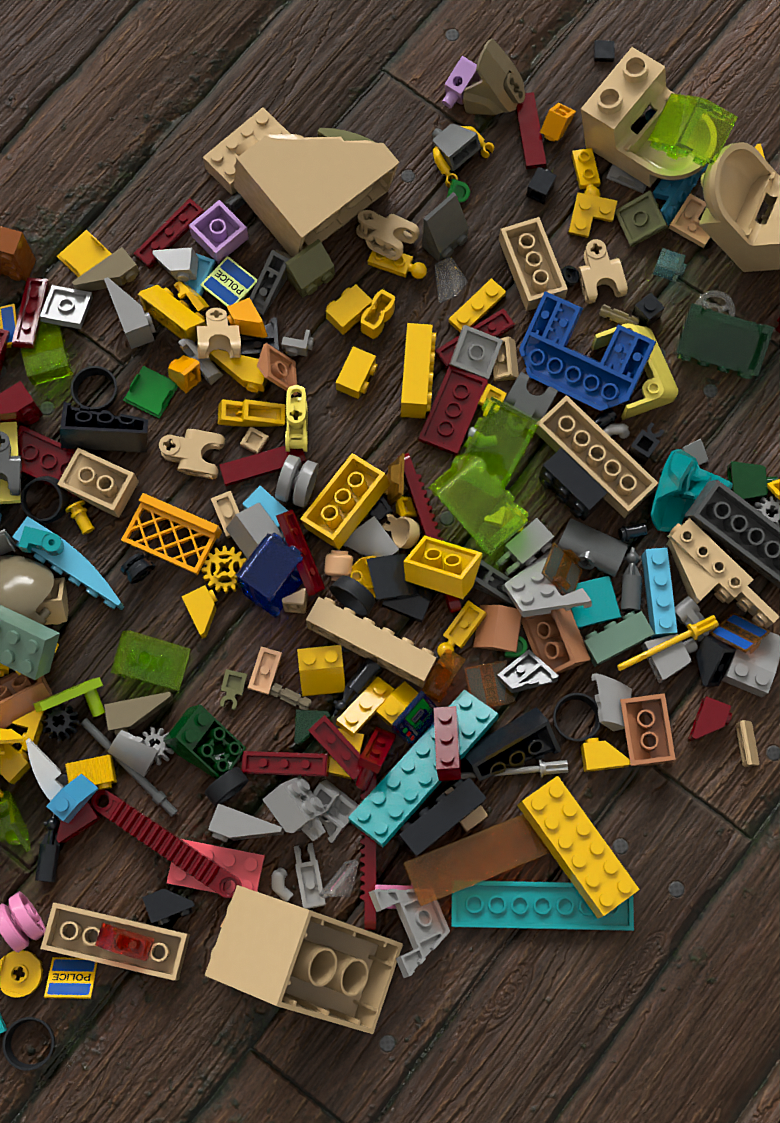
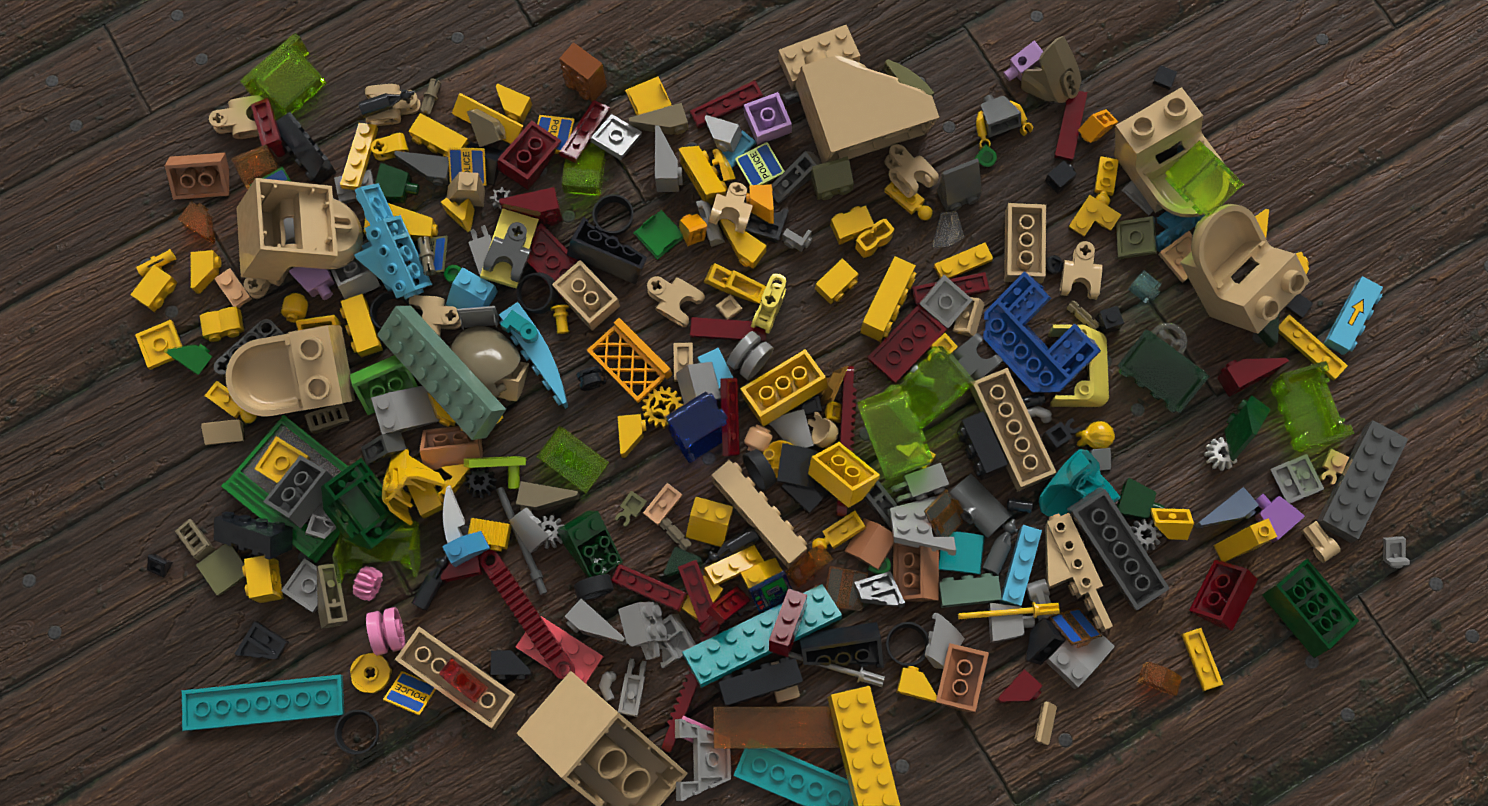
camera: 25 degrees right, 0 degrees up
(277, 367) = (771, 253): nougat slope -> none
(296, 602) = (710, 457): tan slope -> none
(342, 881) = (658, 703): clear slope -> none
(681, 431) = (1097, 435): none -> yellow piece

